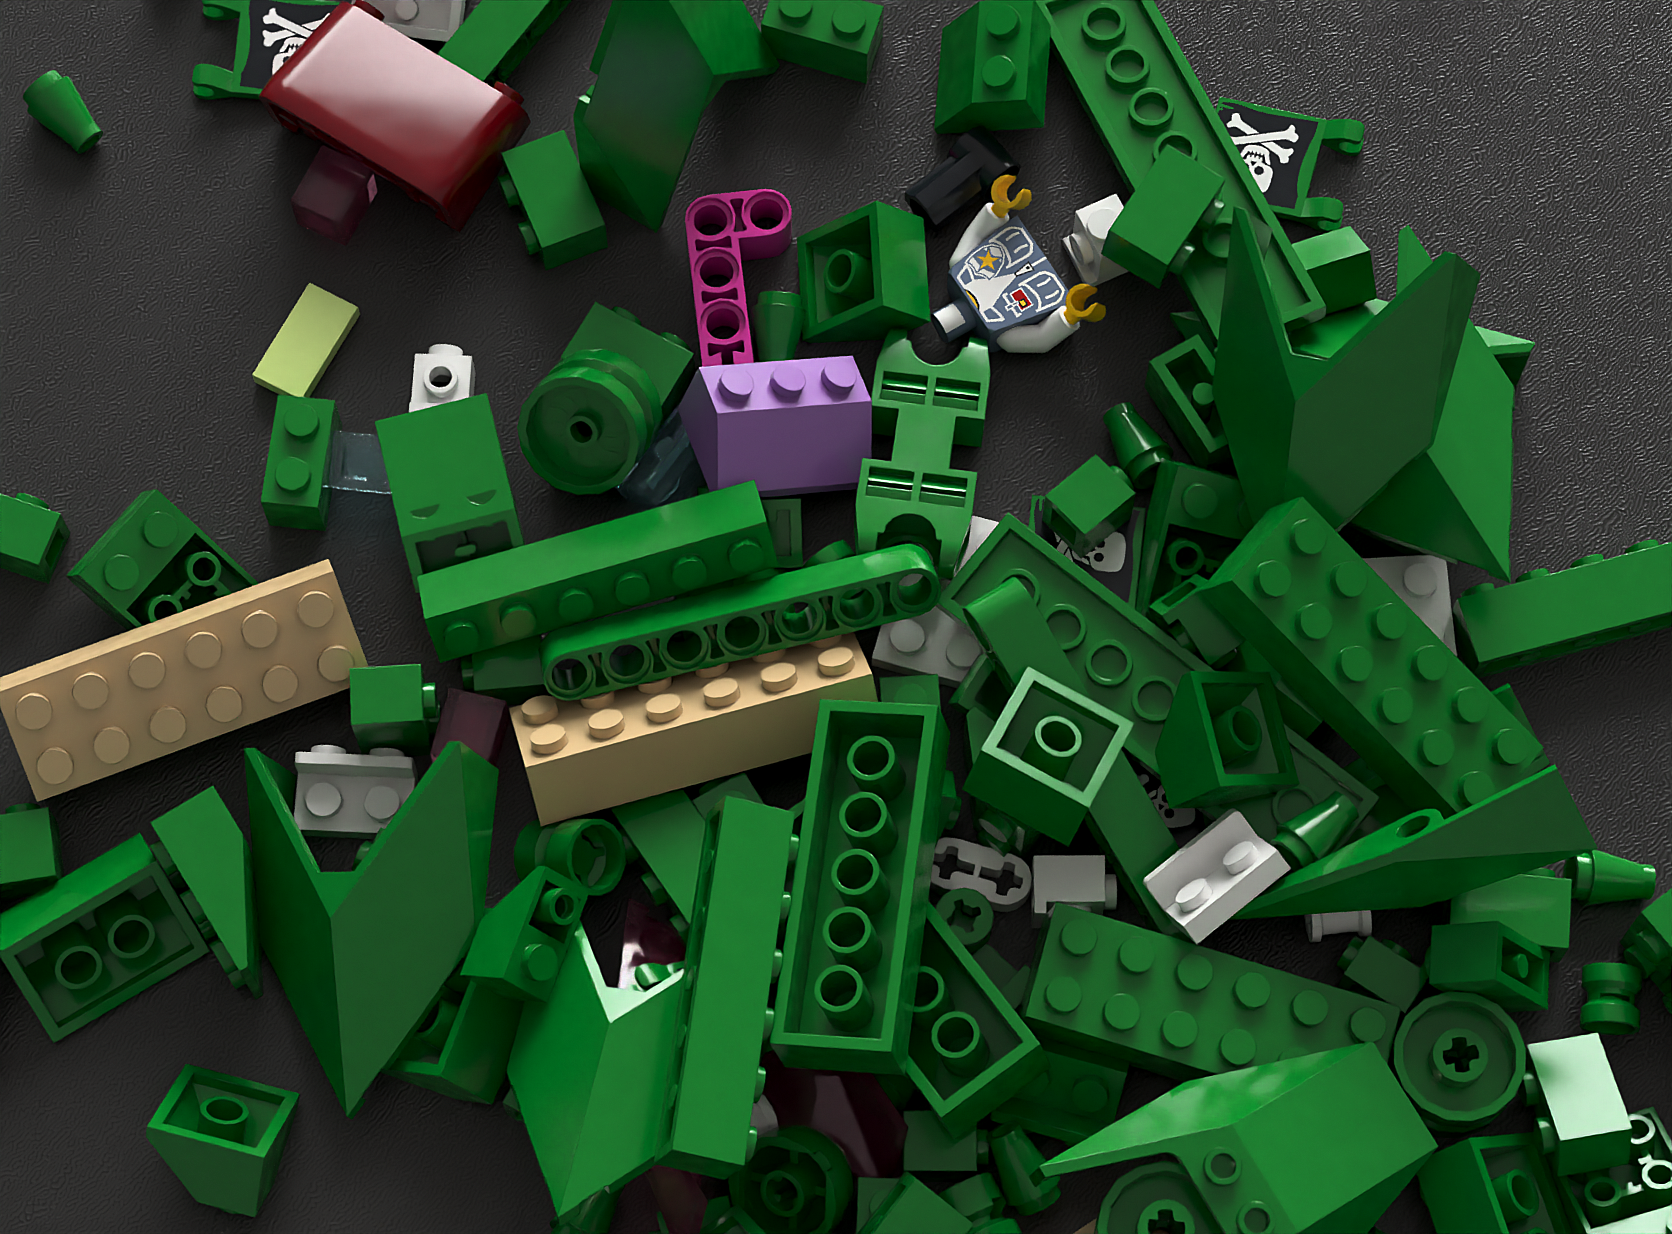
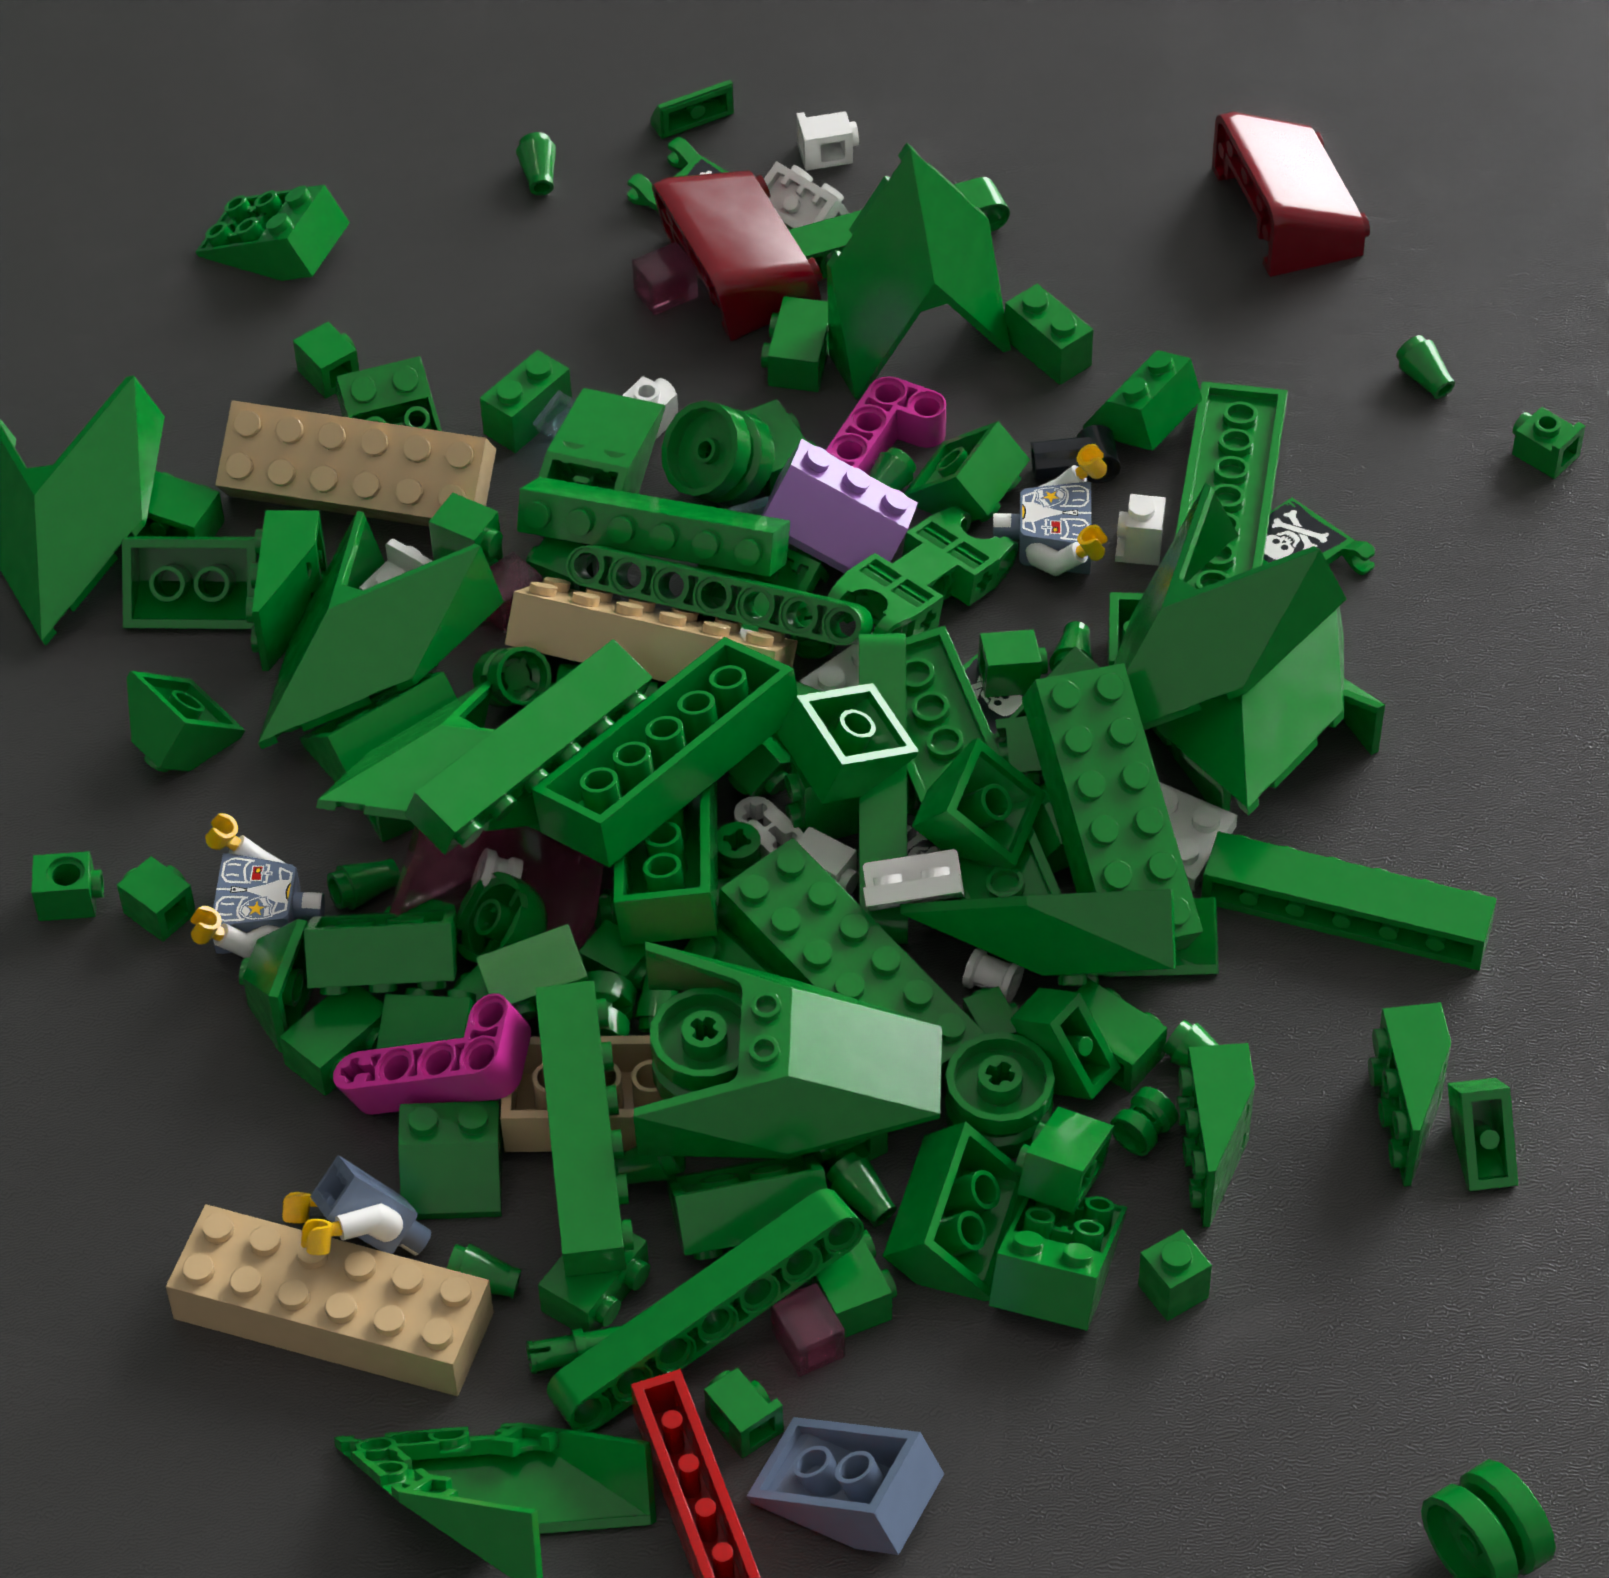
camera: 35 degrees right, 20 degrees down
(306, 343) = (589, 346): yellowish green tile -> none
(526, 937) = (441, 682): green slope -> none
(1164, 216) = (1161, 507): green brick -> none
(1314, 831) = (1000, 885): green cone -> none

